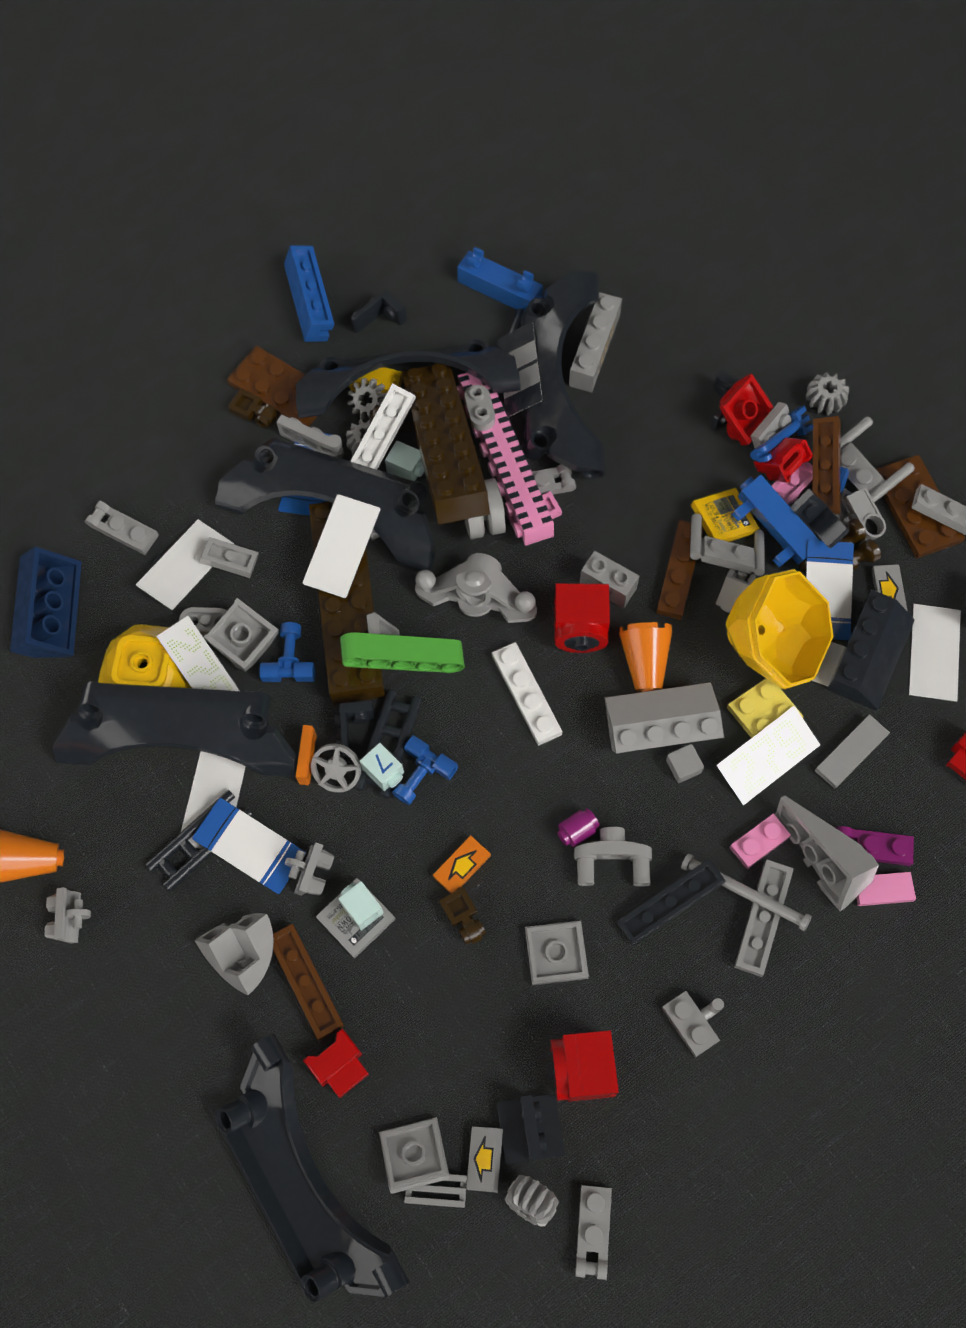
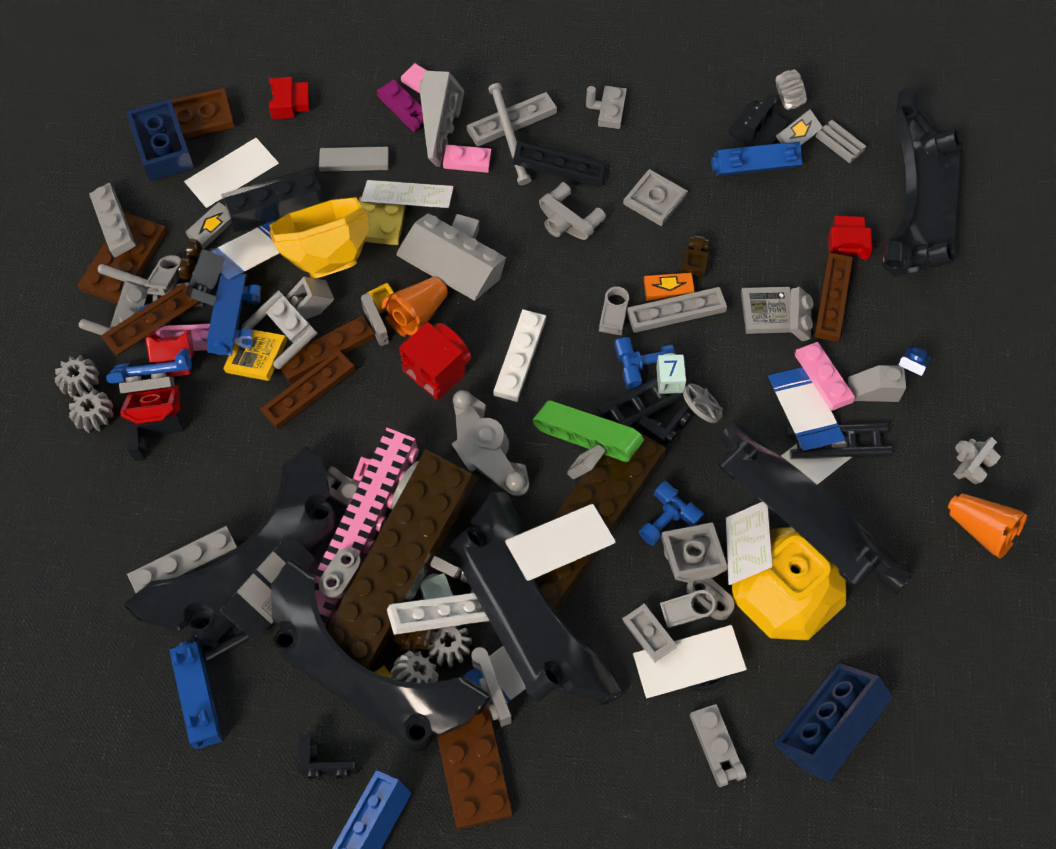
camera: 140 degrees left, 5 degrees down
(179, 964) = (915, 360): none -> blue plate
(200, 917) = (878, 384): none -> light grey slope
(216, 591) = (682, 610): none -> light grey piece
(240, 950) = (863, 341): light grey brick -> none
(249, 405) = (517, 768): dark brown plate -> none
(254, 889) = (824, 376): none -> bright pink plate
(306, 753) = (714, 432): orange tile -> none
(315, 858) = (777, 358): light grey hips -> none
(320, 933) = (800, 314): none -> light grey plate
(360, 904) = (761, 302): light aqua brick -> none
(412, 469) = (446, 567): none -> light grey tile
(414, 1155) = (840, 161): light grey tile -> none
(433, 844) = (676, 309): none -> light grey plate
(483, 793) = (614, 315): none -> light grey piece
(494, 1076) = (757, 159): none -> blue brick
(577, 827) = (573, 246): magenta brick -> none
(583, 1066) = (700, 120): red piece -> none
(593, 1231) = (765, 63): light grey plate -> none
(605, 571) = (385, 375): light grey brick -> none
(655, 525) = (307, 389): none -> reddish brown plate
(656, 613) = (374, 319): none -> light grey tile
(684, 647) = (379, 294): none -> yellow tile
(786, 381) = (91, 410): none -> light grey gear

